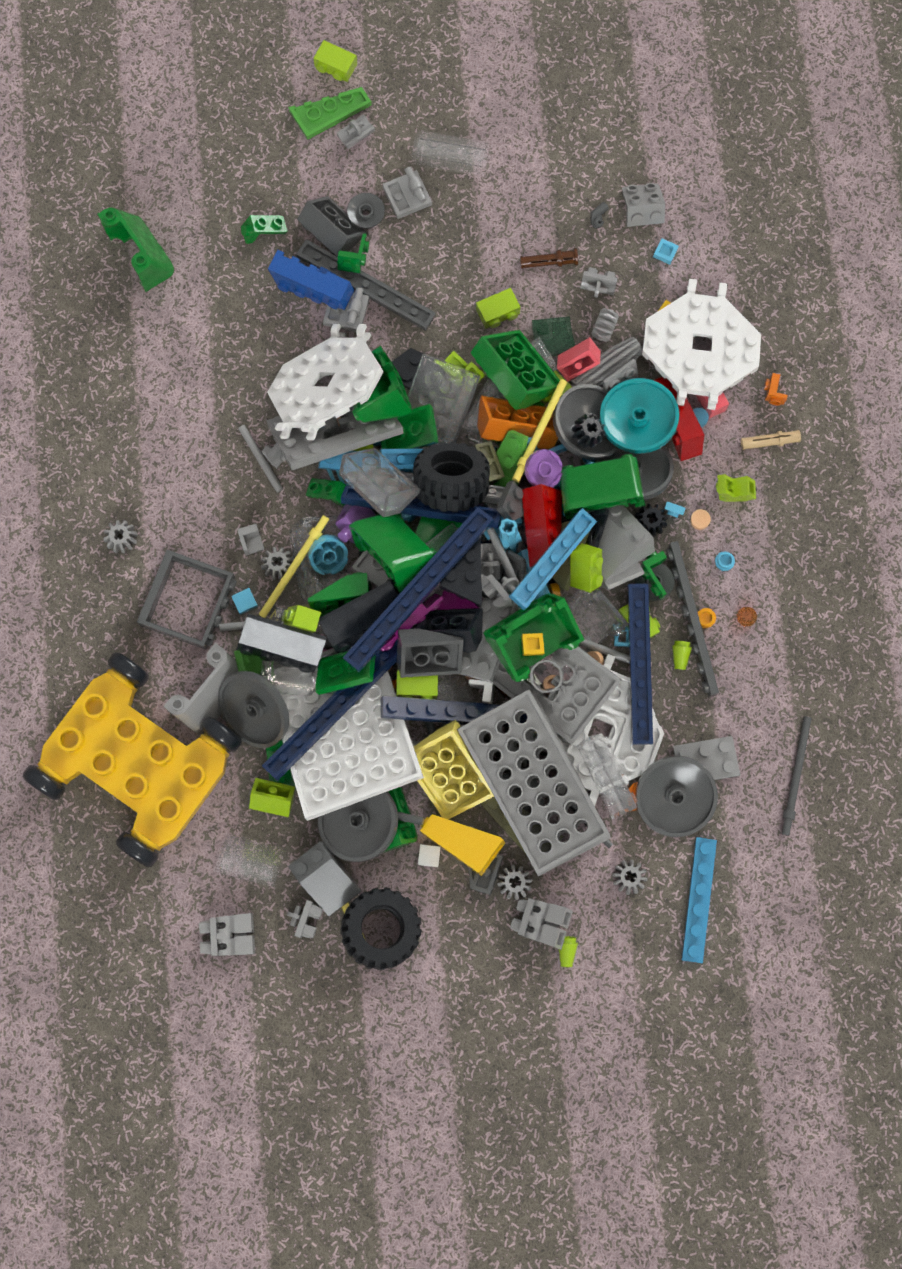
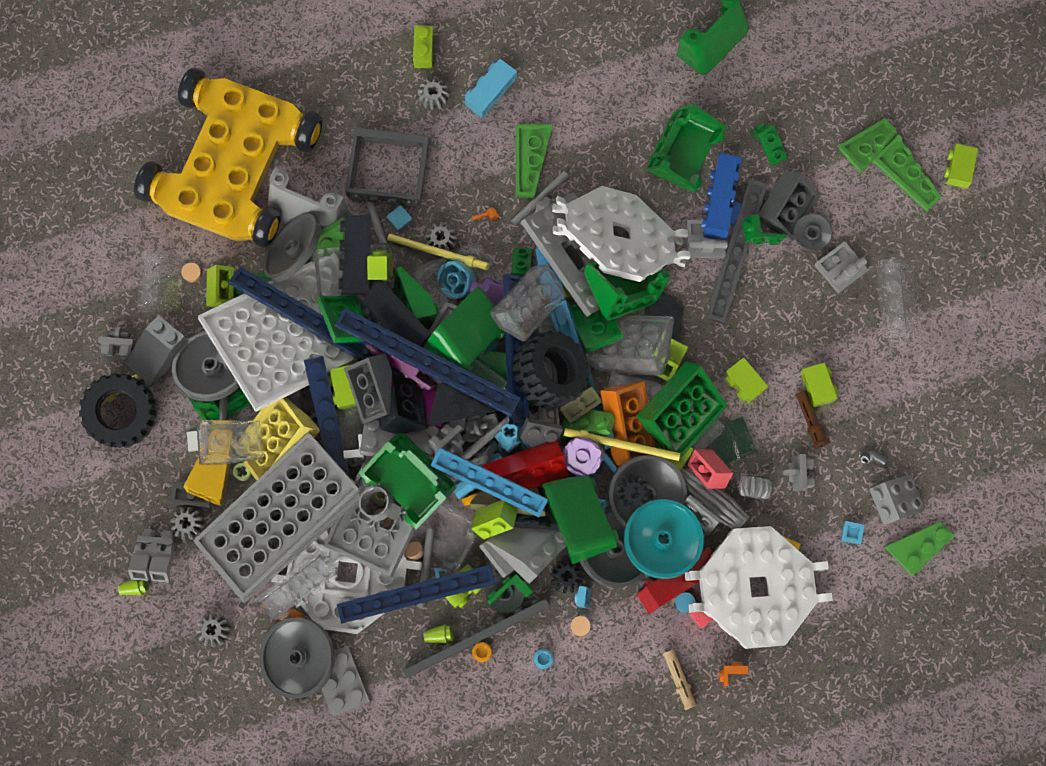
camera: 80 degrees right, 0 degrees up
(66, 534) = (423, 46): none -> lime brick
(130, 478) = (490, 88): none -> medium azure brick
(206, 454) = (530, 155): none -> bright green wing
(239, 945) = (90, 281): light grey hips -> none
(245, 307) = (685, 146): none -> green windscreen
(246, 827) = (191, 272): none -> light nougat tile
(250, 539) = (457, 208): light grey panel -> none
(264, 508) = (491, 213): none -> orange hand
(291, 138) = (868, 144): none -> bright green wing
(355, 131) = (891, 202): light grey hips -> none
(444, 817) = (228, 441): none -> clear slope
(473, 822) = (236, 473): none -> yellowish green bush
(518, 243) = (819, 385): none -> lime brick
(532, 644) = (400, 481): yellow plate -> none
(692, 196) = (920, 547): none -> bright green wing
(699, 900) = (205, 701): dark azure plate -> none
(735, 488) = (618, 653): lime brick -> none
(746, 616) = (492, 692): clear orange plate -> none

